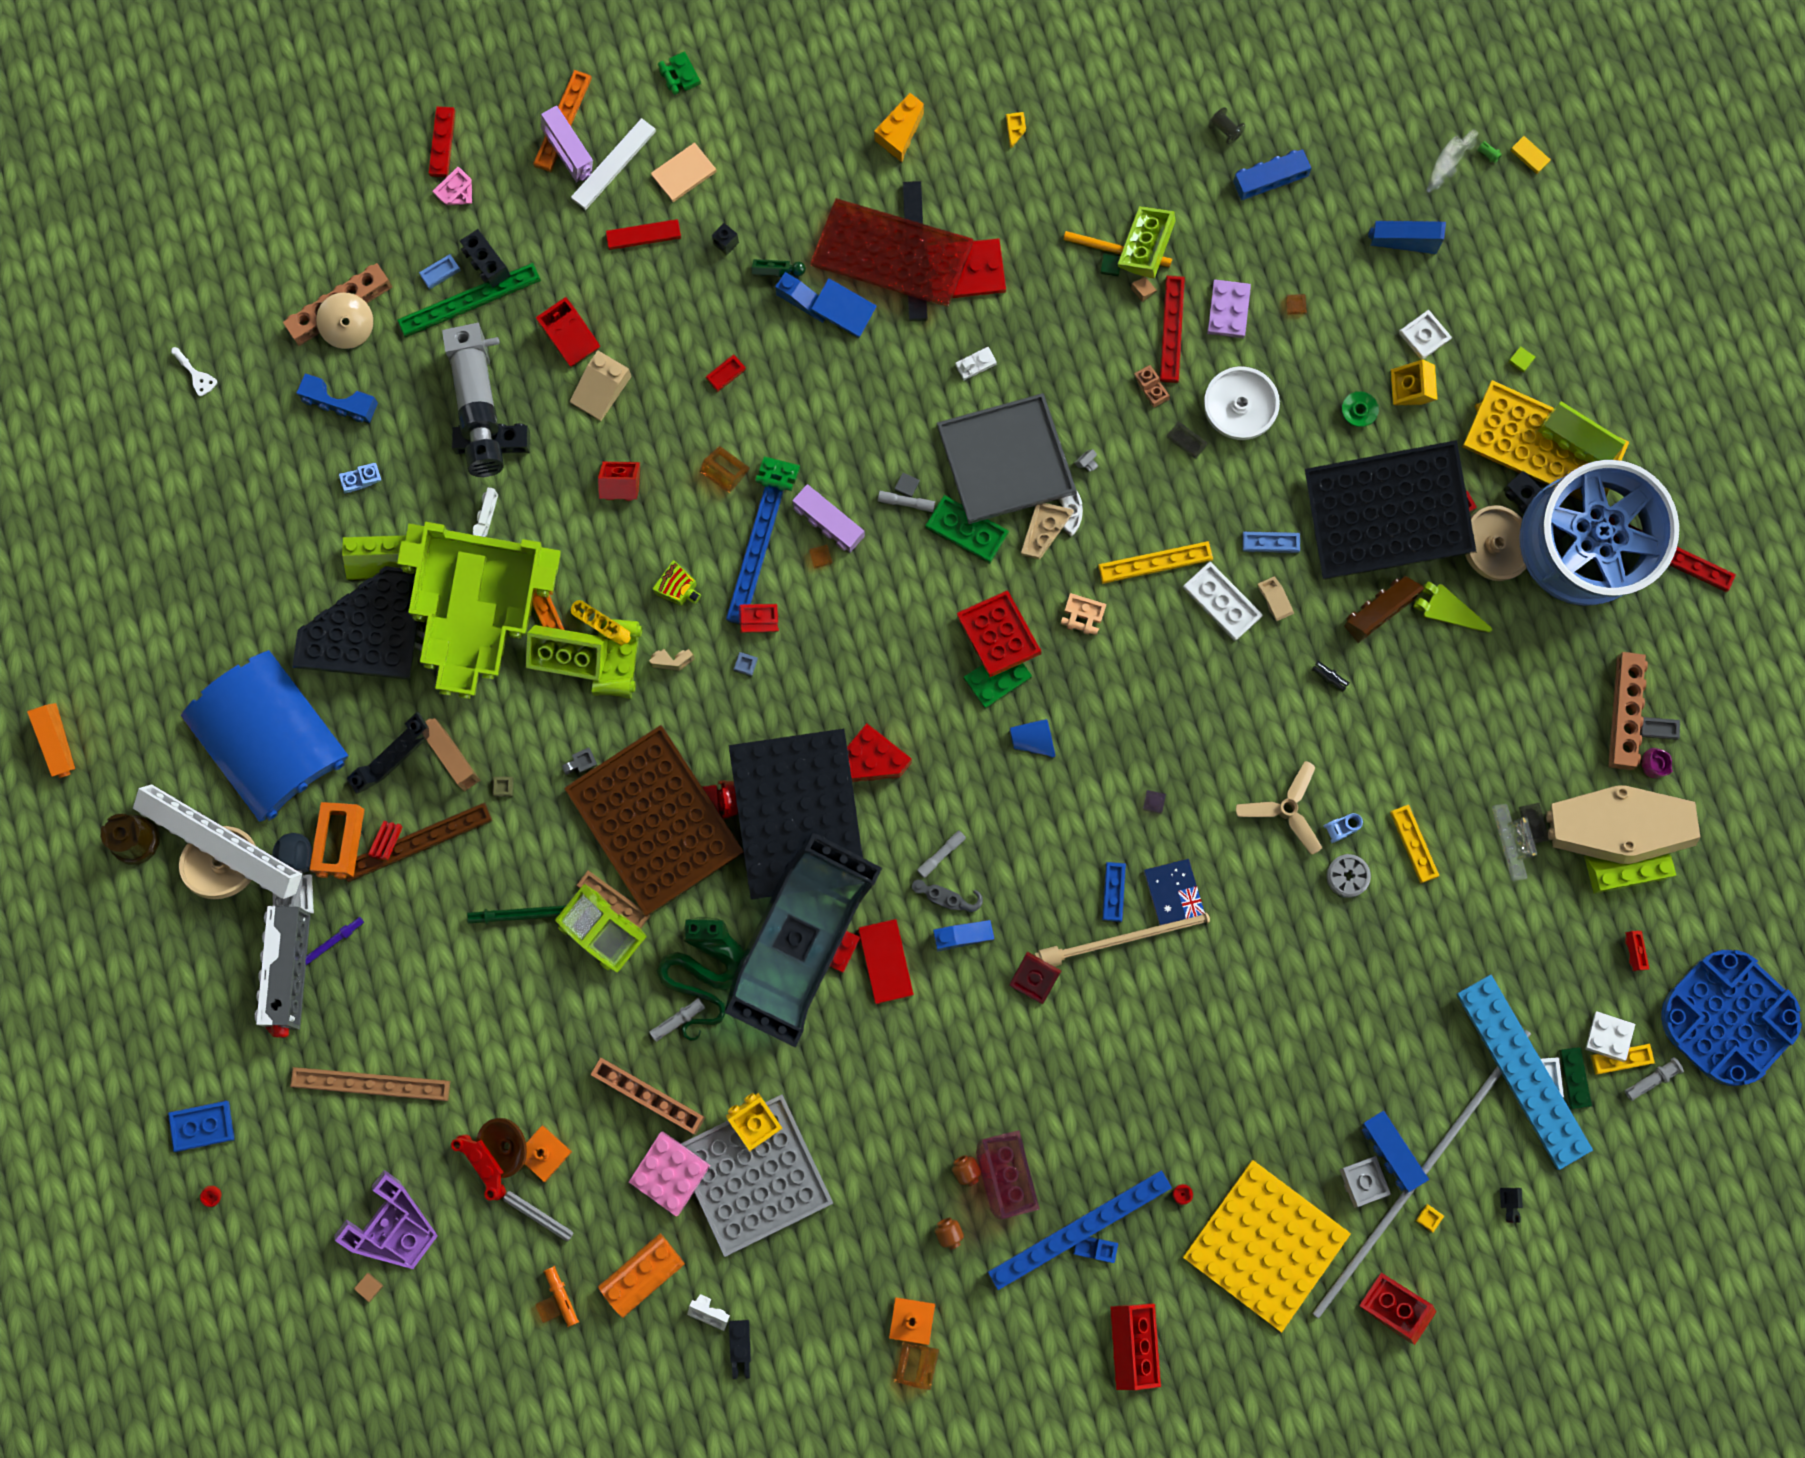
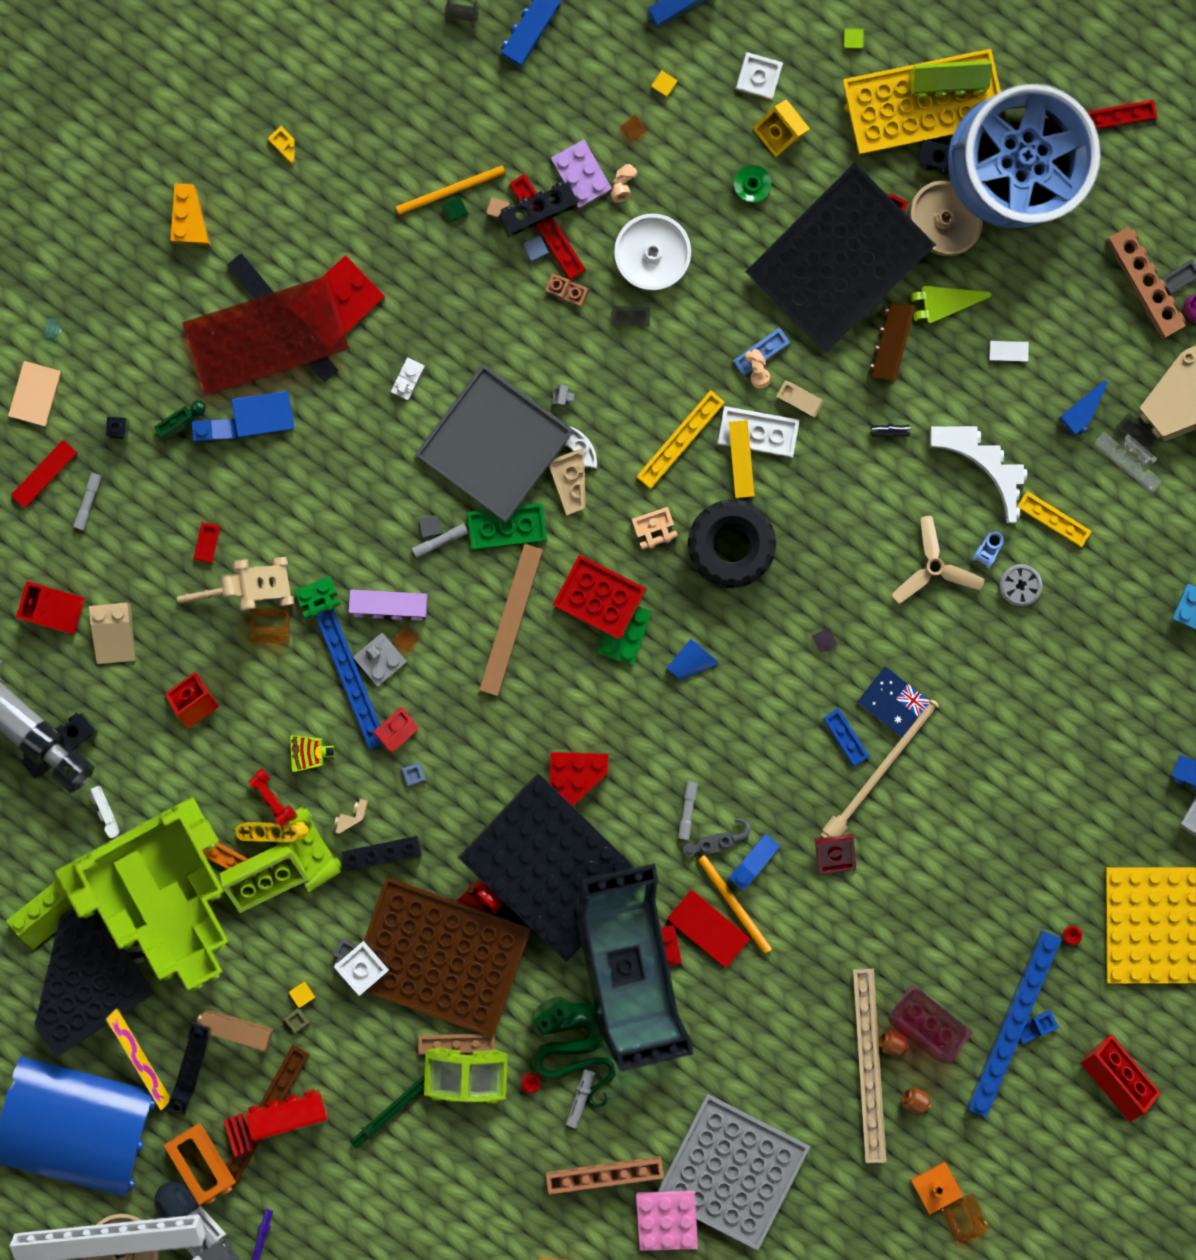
camera: 40 degrees left, 10 degrees up
(356, 719) = (138, 1059): none -> yellow sticker
(433, 850) = (285, 1115): none -> red slope
(523, 769) = (302, 994): none -> yellow tile
(585, 780) = (361, 968): none -> white plate
(619, 610) = (282, 814): none -> red plate
(647, 976) = (530, 1083): none -> red tile
(649, 284) = (91, 489): none -> light grey piece
(672, 704) = (381, 853): none -> black brick
(733, 421) = (251, 585): none -> tan piece
(734, 134) = (52, 328): none -> clear light blue plate
(753, 1121) = (701, 1132): yellow plate -> none
(789, 557) = (380, 659): none -> light grey hinge
(914, 602) = (511, 619): none -> medium nougat tile
(921, 958) = (734, 904): none -> light orange piece
(932, 1174) = (869, 1065): none -> tan plate
(1146, 642) = (740, 515): none -> black tyre
(1147, 241) = (471, 166): lime slope -> none
(1147, 306) = (513, 225): none -> black brick
(1151, 338) = (535, 248): none -> sand blue tile
(1193, 610) = (741, 458): none -> yellow tile
(1250, 342) = (620, 191): none -> light nougat arm
(1255, 559) = (760, 377): none -> light nougat arm
(1345, 288) = (664, 83): none -> yellow tile
(1399, 779) = (1006, 477): none -> white arch
(1473, 684) = (1008, 351): none -> white tile
(1495, 775) = (1082, 412): none -> blue slope

